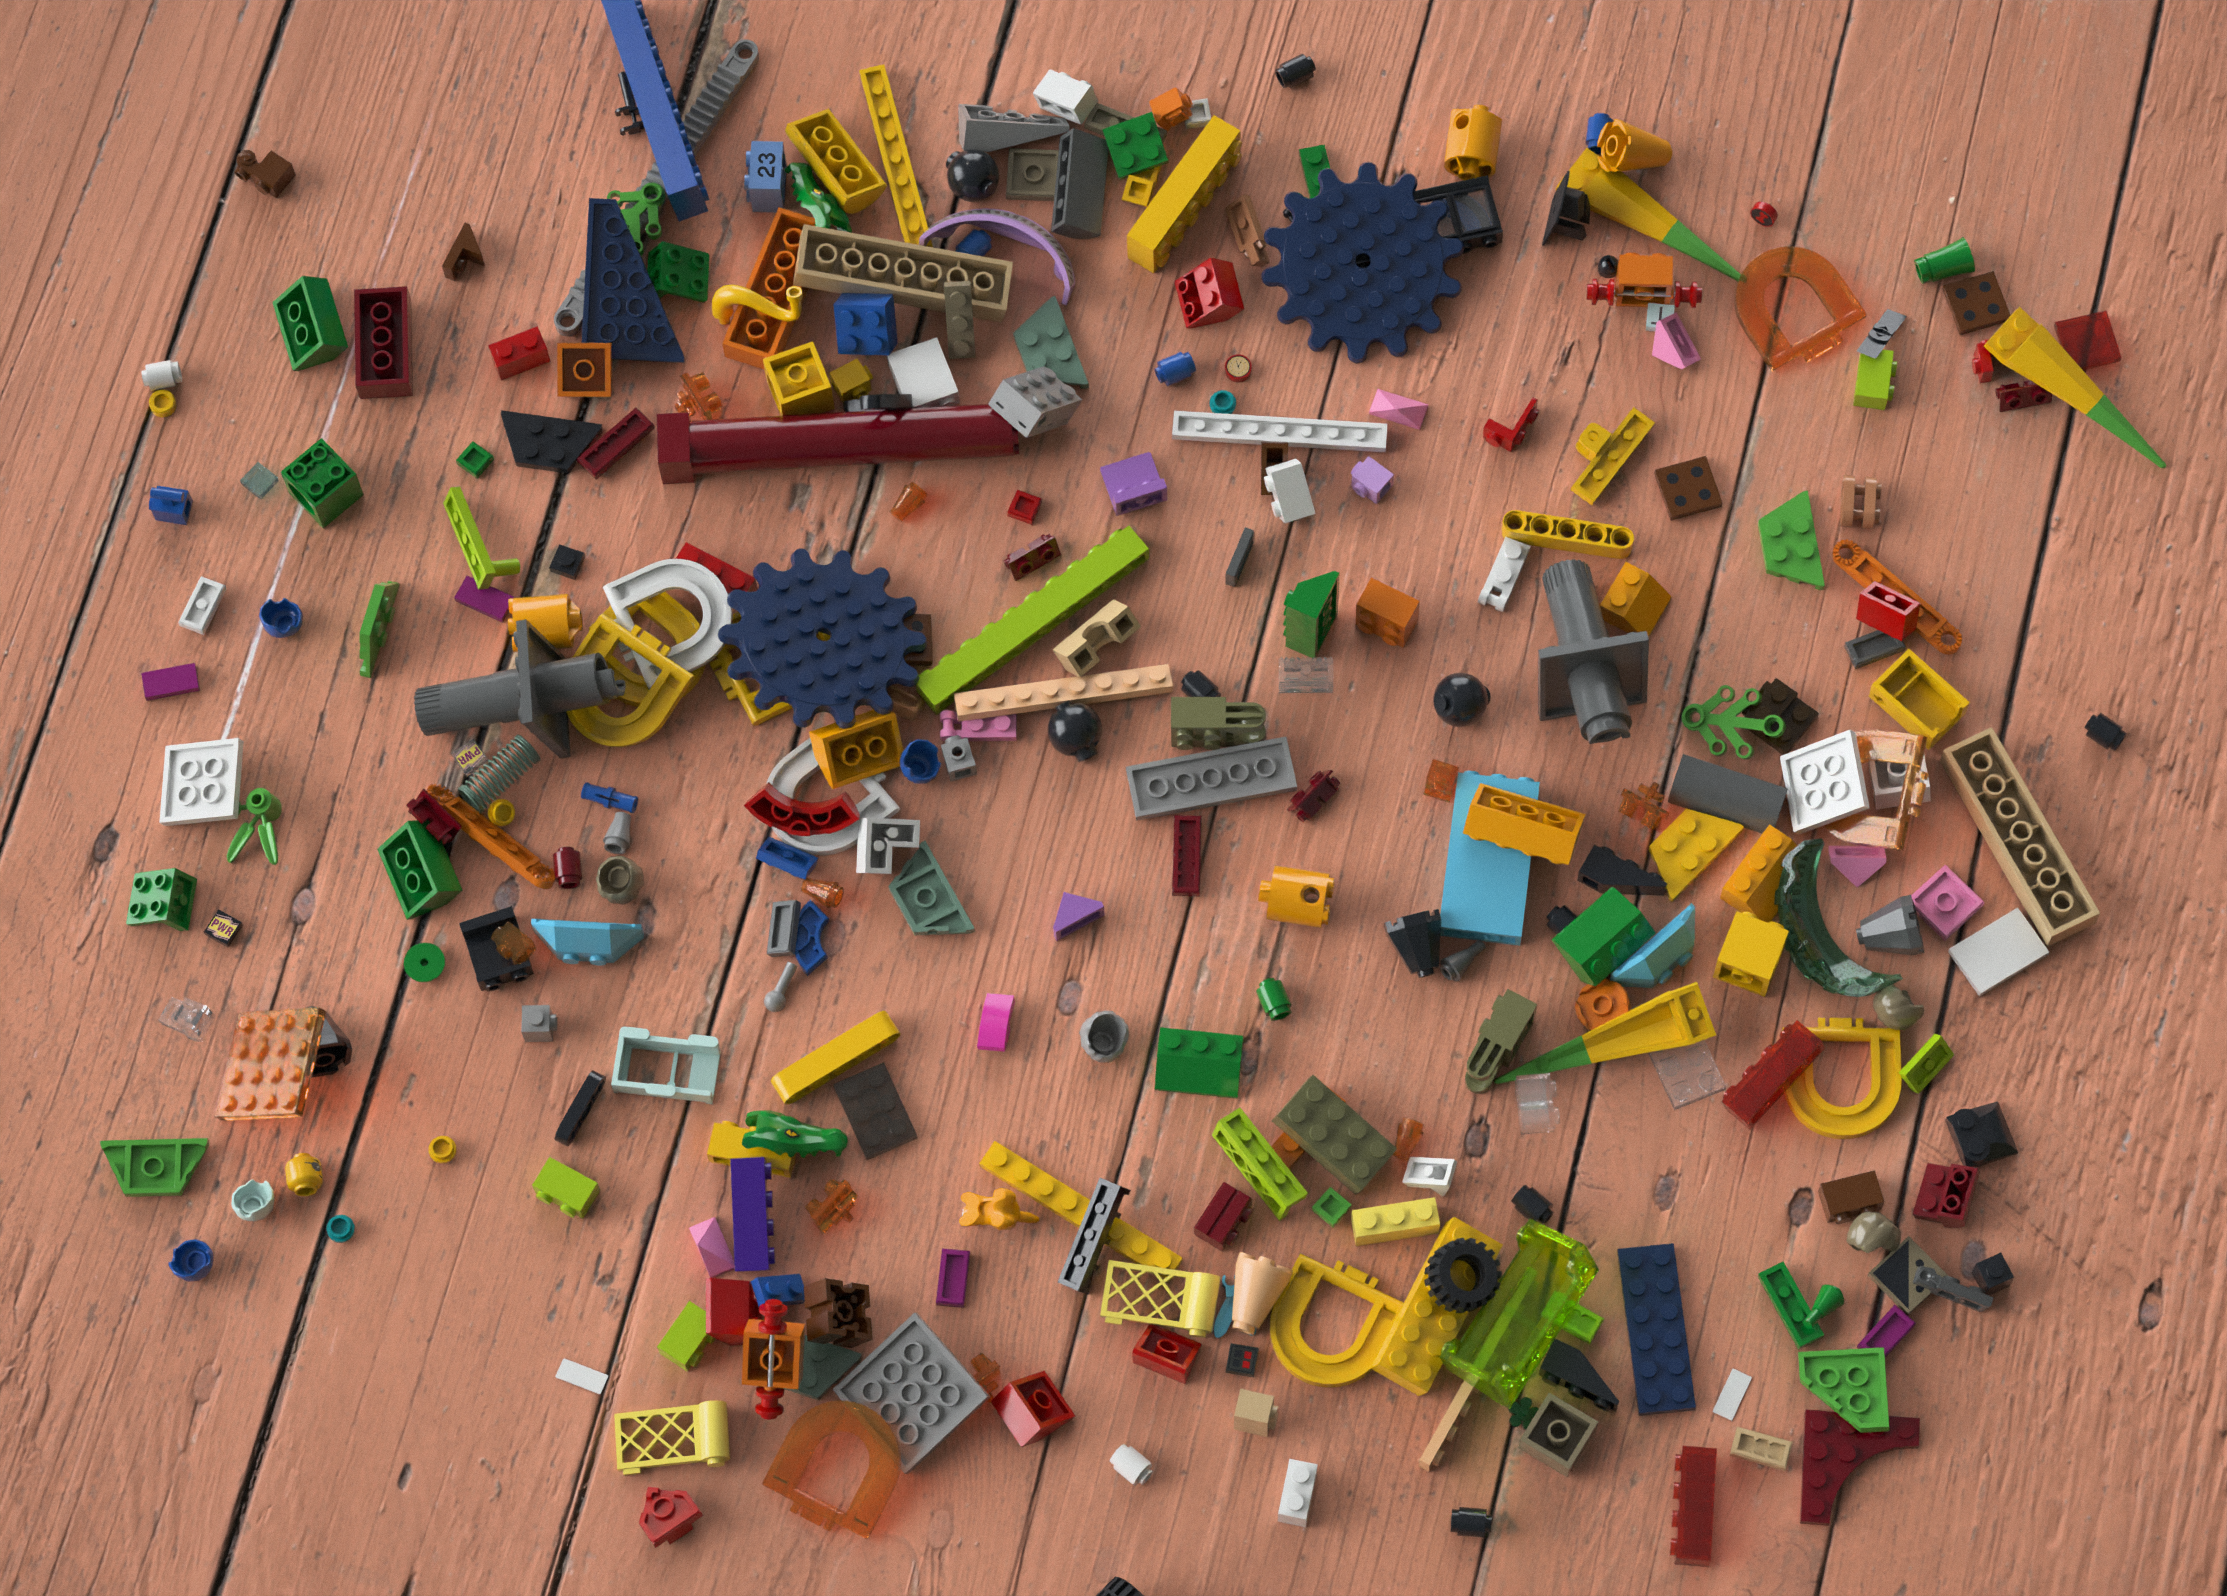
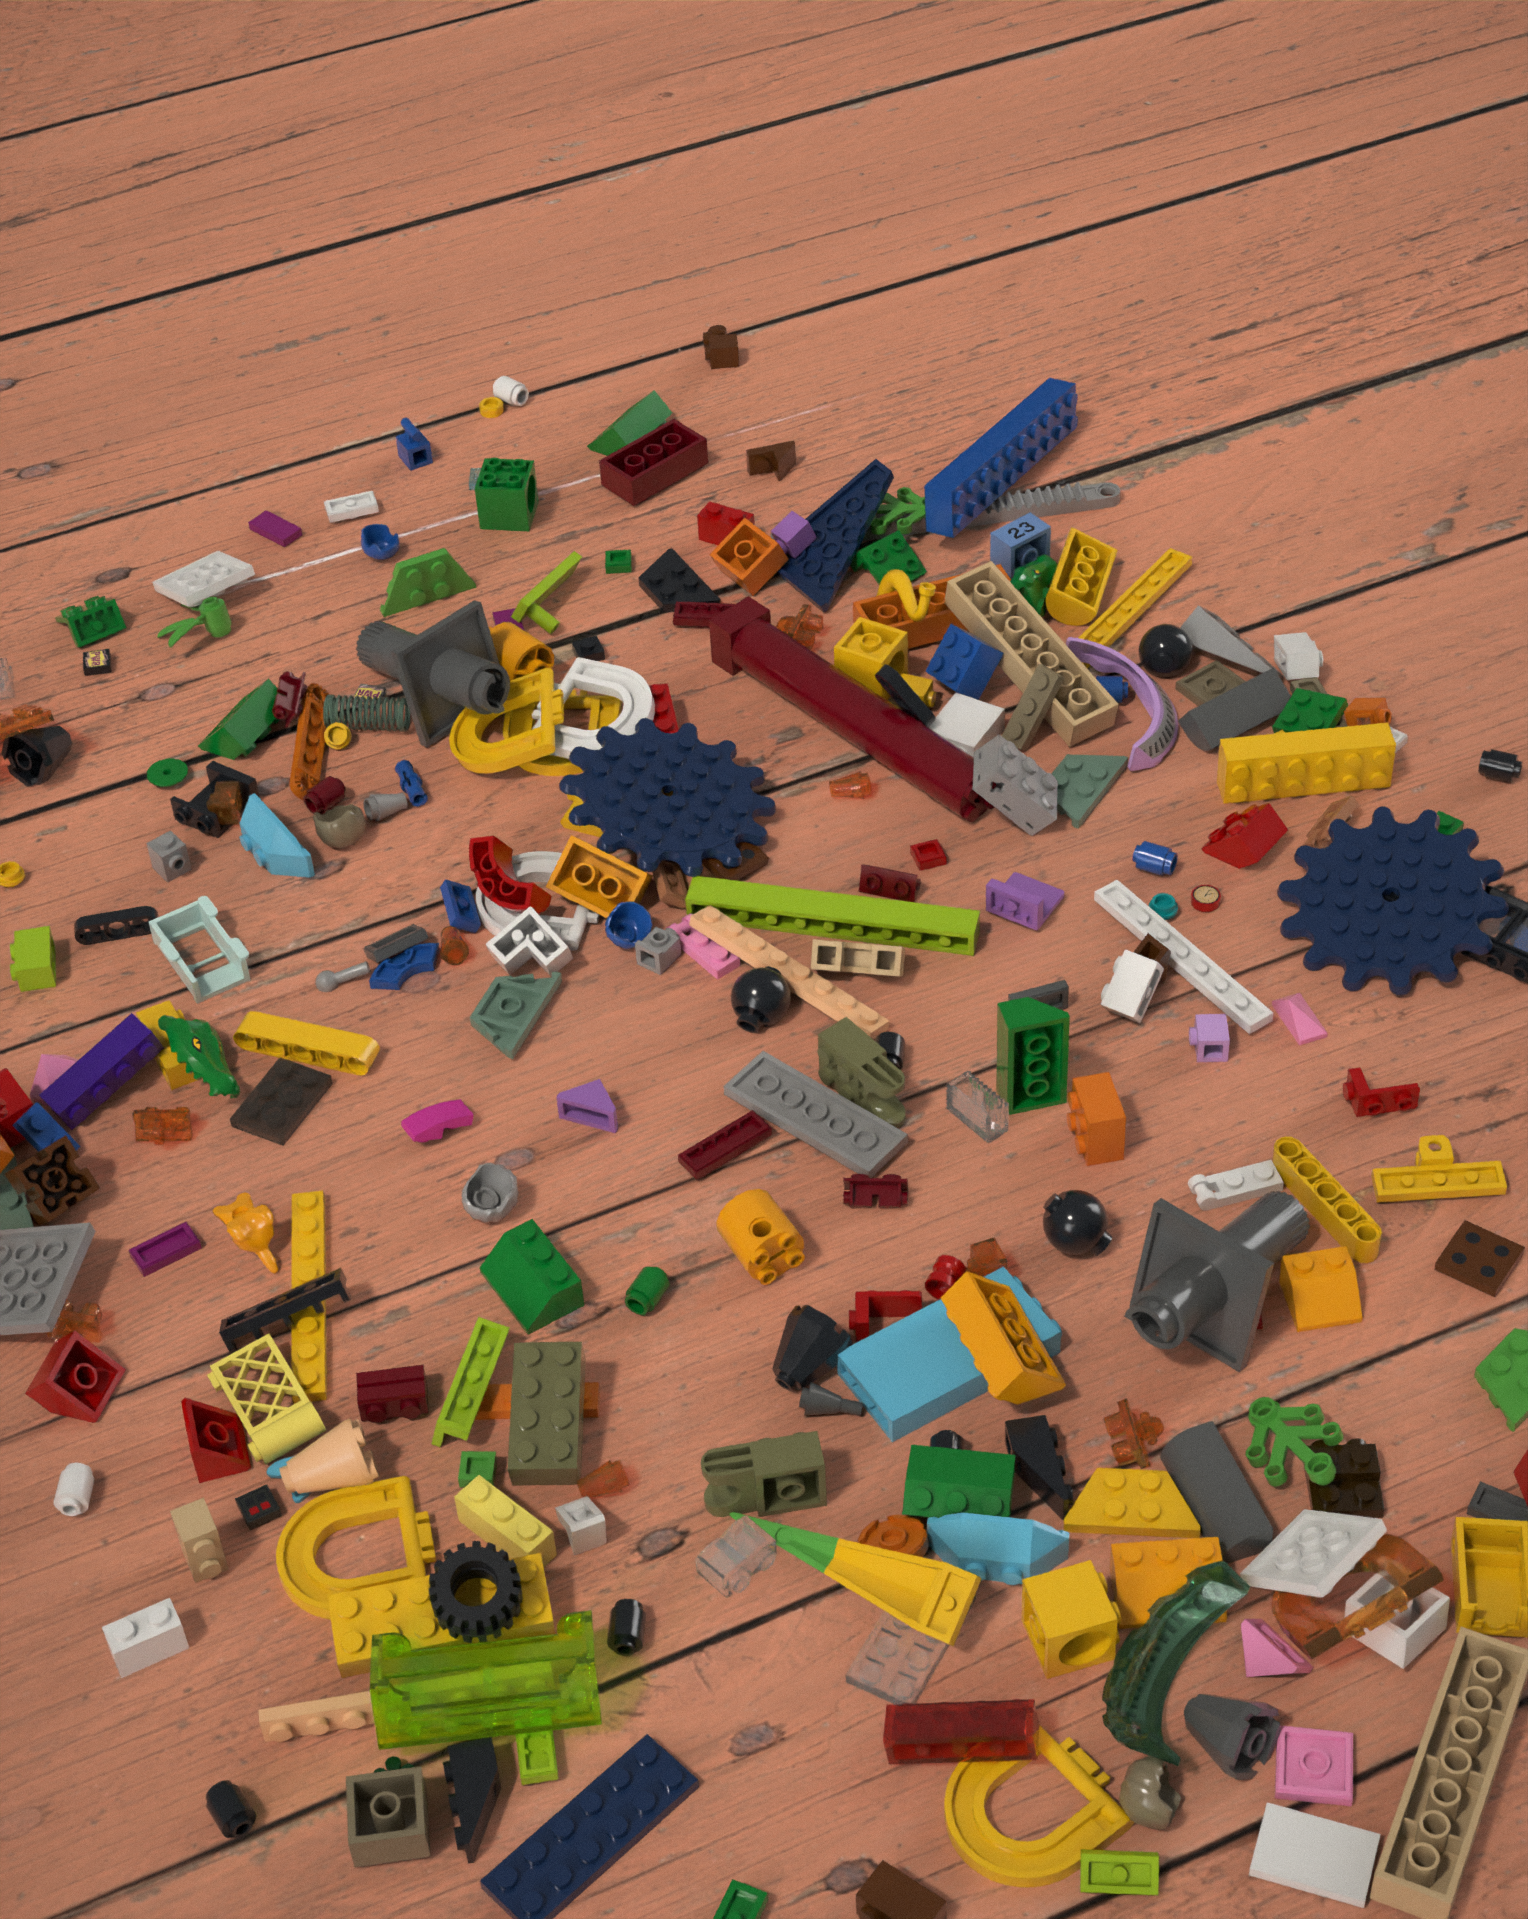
camera: 50 degrees right, 25 degrees down
(598, 321) = (793, 534): none -> medium lavender brick
(1413, 887) = (881, 1304): none -> red bracket
(1427, 811) = (945, 1273): none -> red wheel

